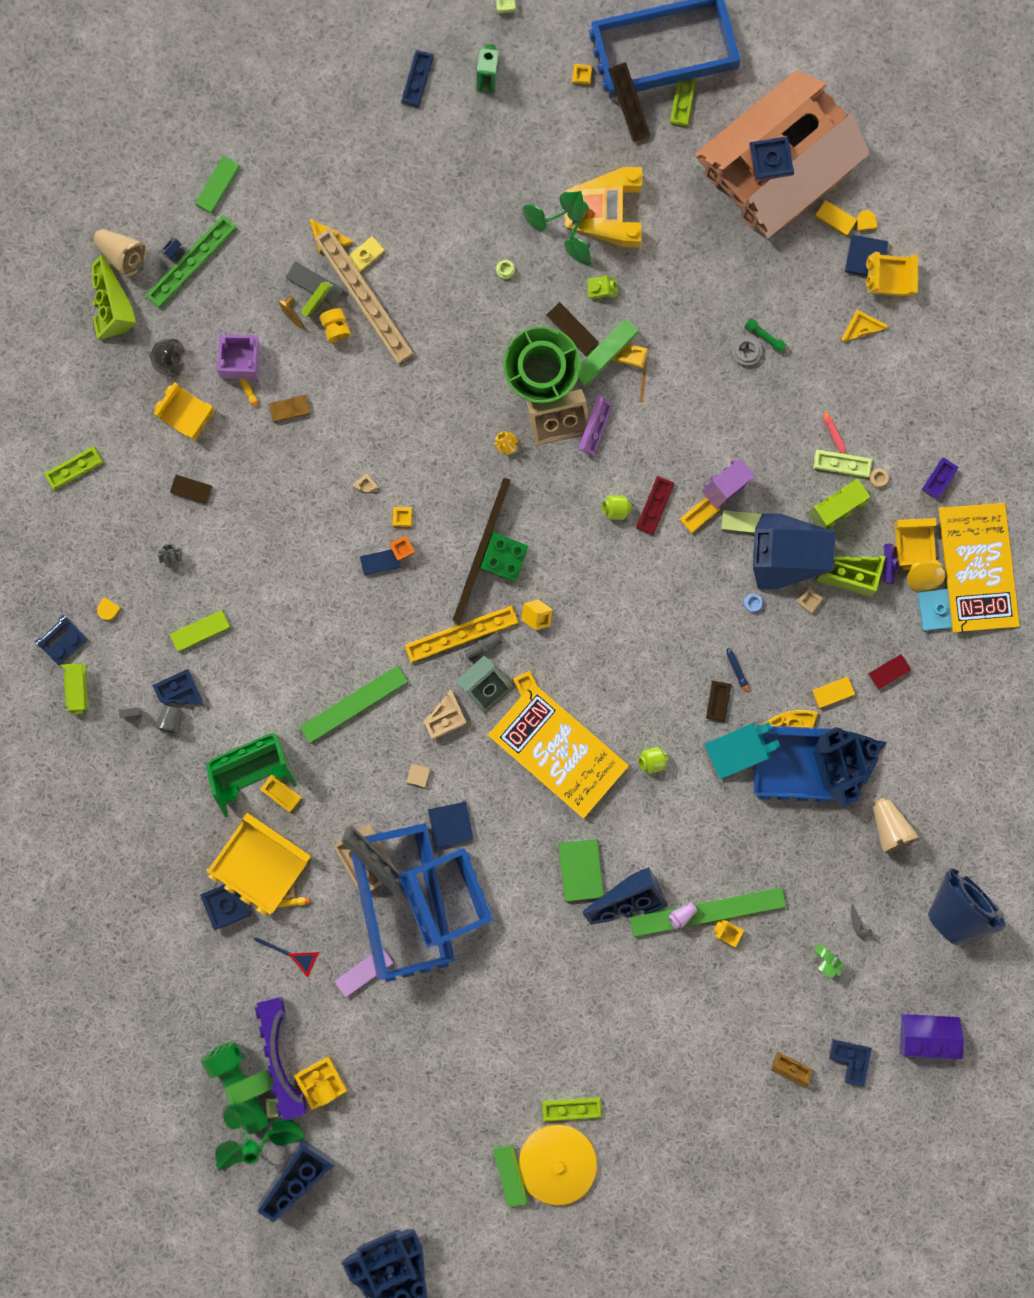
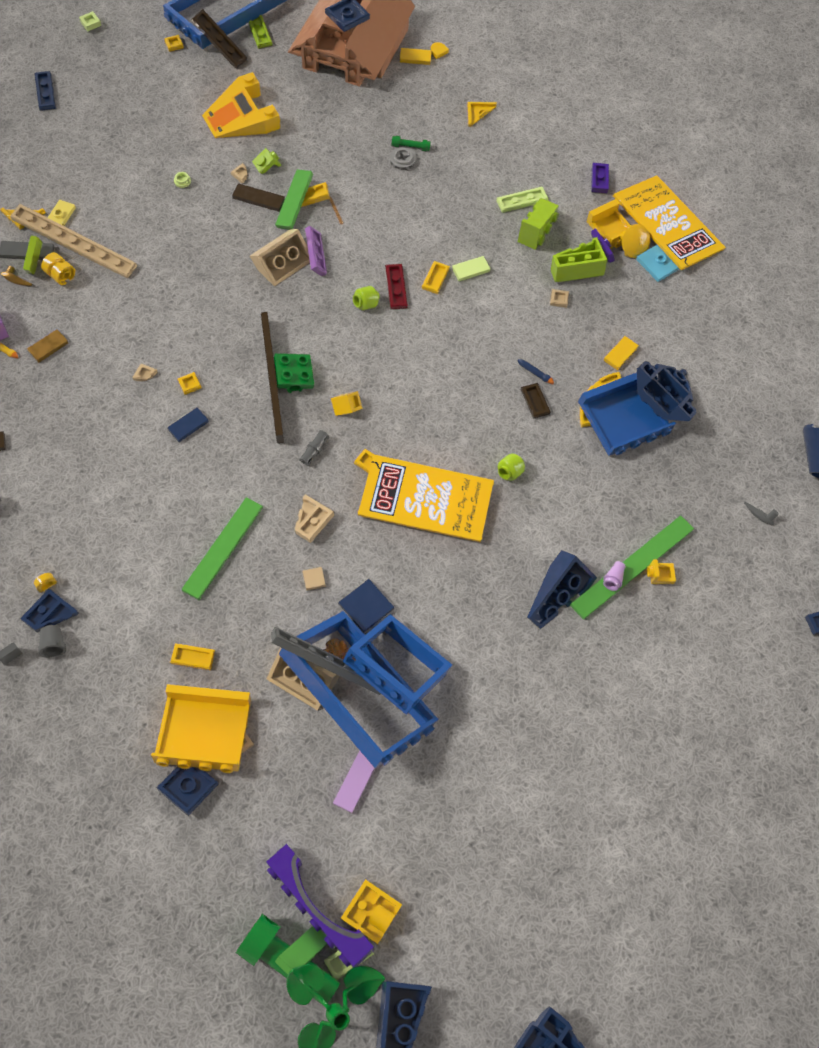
camera: 30 degrees left, 20 degrees down
(187, 660) = (44, 582): none -> yellow tile
(199, 630) = (46, 553): lime tile -> none
(245, 766) = (150, 645): green windscreen -> none
(301, 901) = (262, 744): yellow piece -> none
(304, 960) = (293, 800): dark blue piece -> none
(401, 854) = (336, 648): none -> clear orange gear
(402, 548) = (201, 403): orange tile -> none
(461, 634) = (288, 449): yellow tile -> none
(484, 684) = (332, 475): sand green slope -> none
(487, 66) = (97, 56): green torso -> none
(506, 442) = (248, 291): yellow gear -> none
(510, 1175) = (608, 900): bright green tile -> none
(546, 343) = (250, 207): bright green cone -> none
(557, 1164) = (644, 864): yellow dish -> none
(569, 288) = (240, 173): none -> tan tile
(571, 1109) = (624, 803): lime tile -> none
(576, 209) = (212, 99): green plant -> none
(580, 870) = (504, 586): bright green tile -> none
(727, 483) = (444, 240): medium lavender container -> none
(740, 749) = (577, 421): teal tile -> none
(753, 602) = (517, 319): light blue tile -> none
(790, 551) = (525, 265): dark blue wedge -> none
(791, 1069) = (791, 659): pearl gold plate -> none
(831, 965) = (760, 556): bright green piece -> none
(834, 433) = (493, 177): coral piece -> none
(859, 250) = (453, 69): dark blue tile -> none
(879, 478) = (555, 197): tan tile -> none
(889, 671) = (653, 319): dark red tile -> none
(892, 275) = (480, 70): yellow panel -> none
(892, 826) = (736, 423): tan cone -> none

